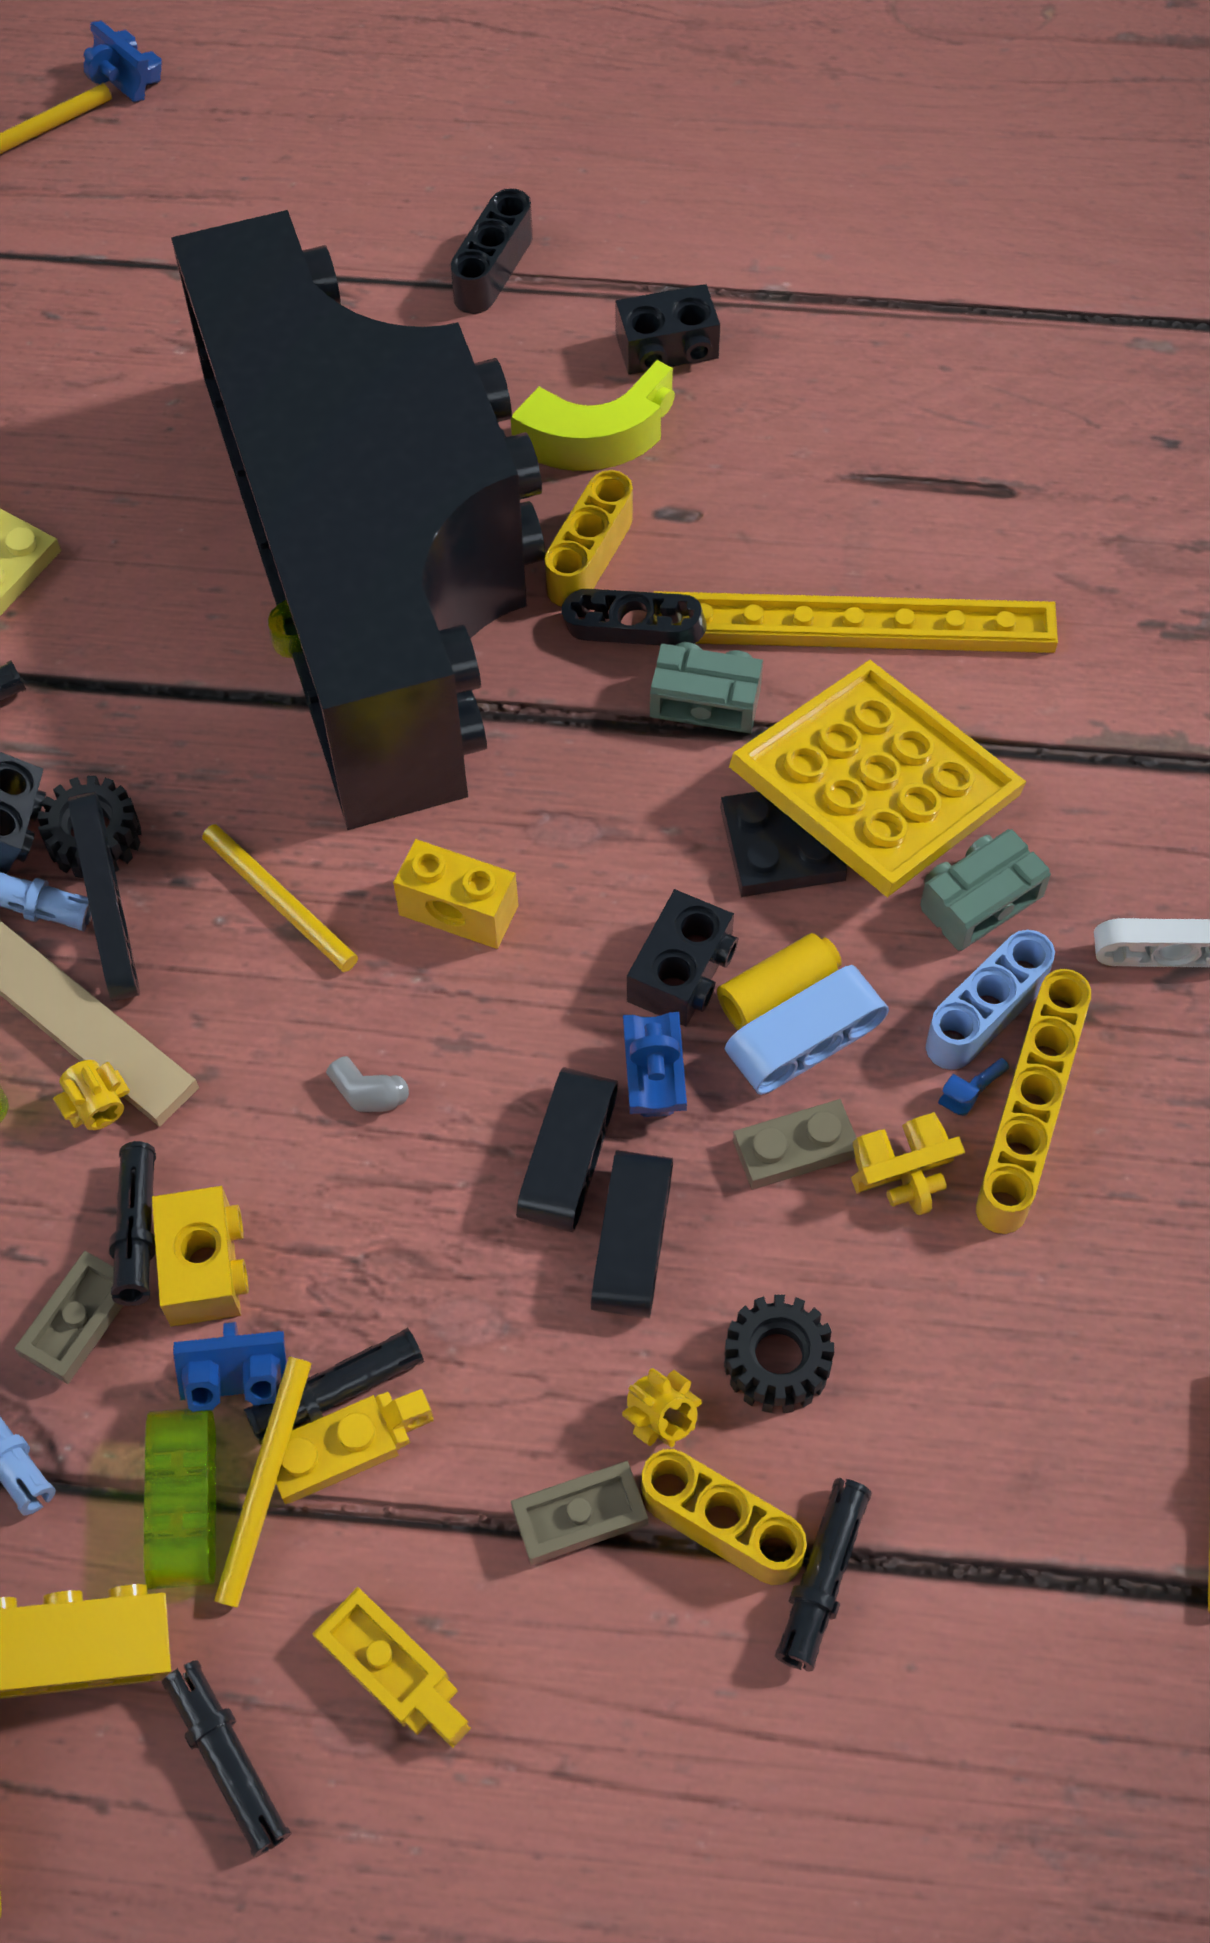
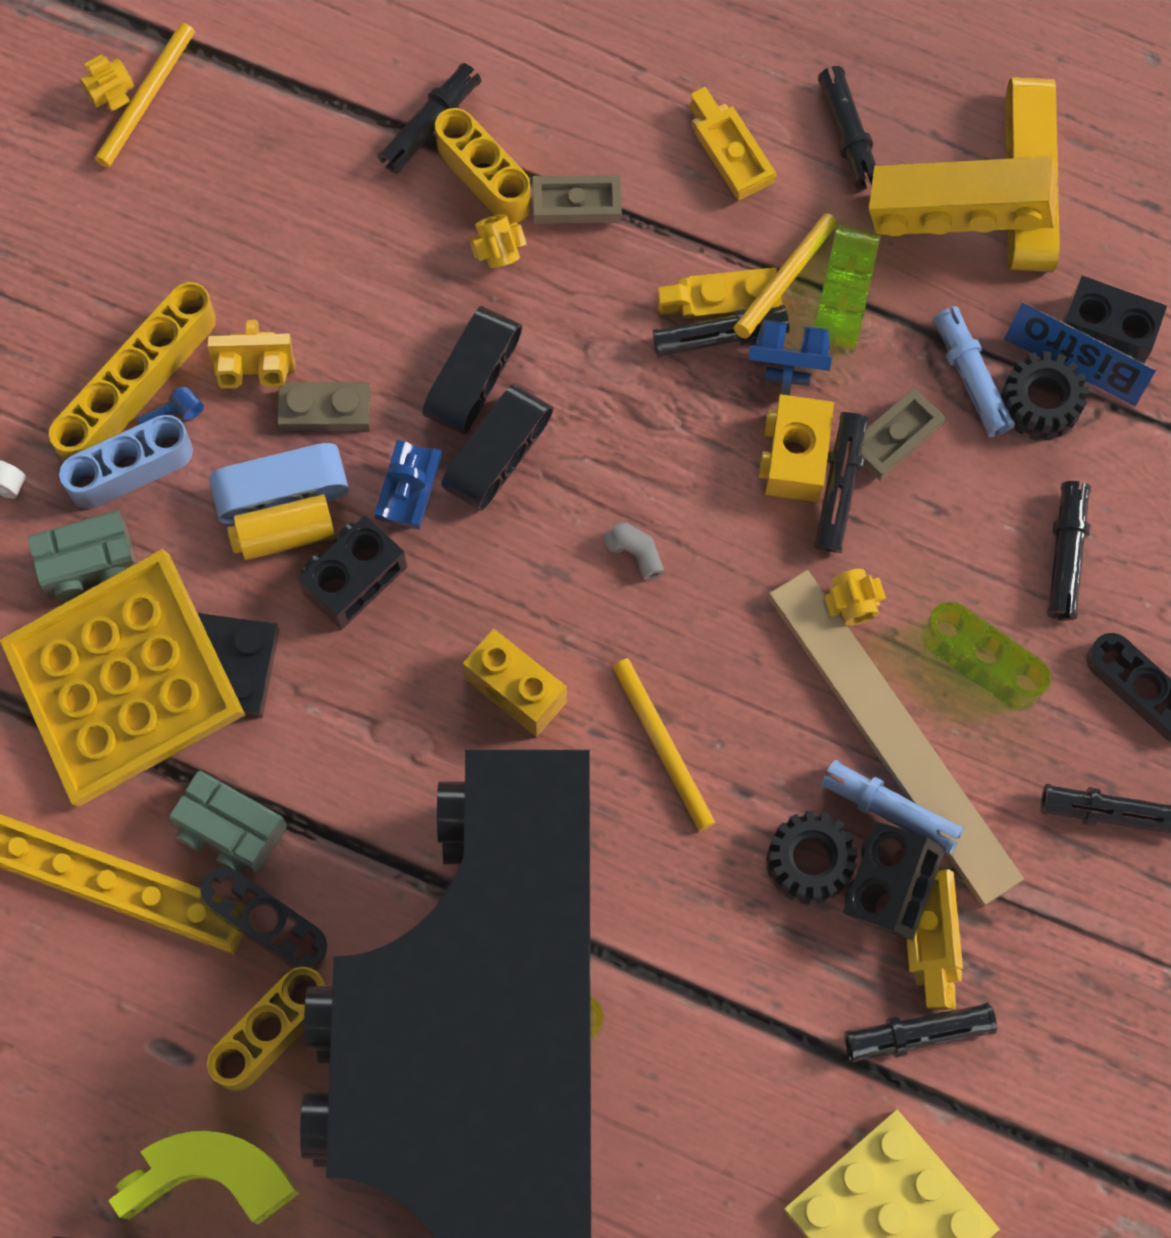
camera: 165 degrees left, 10 degrees up
(103, 896) = (812, 764): black beam -> none
(787, 1320) = (395, 236): black tyre -> none

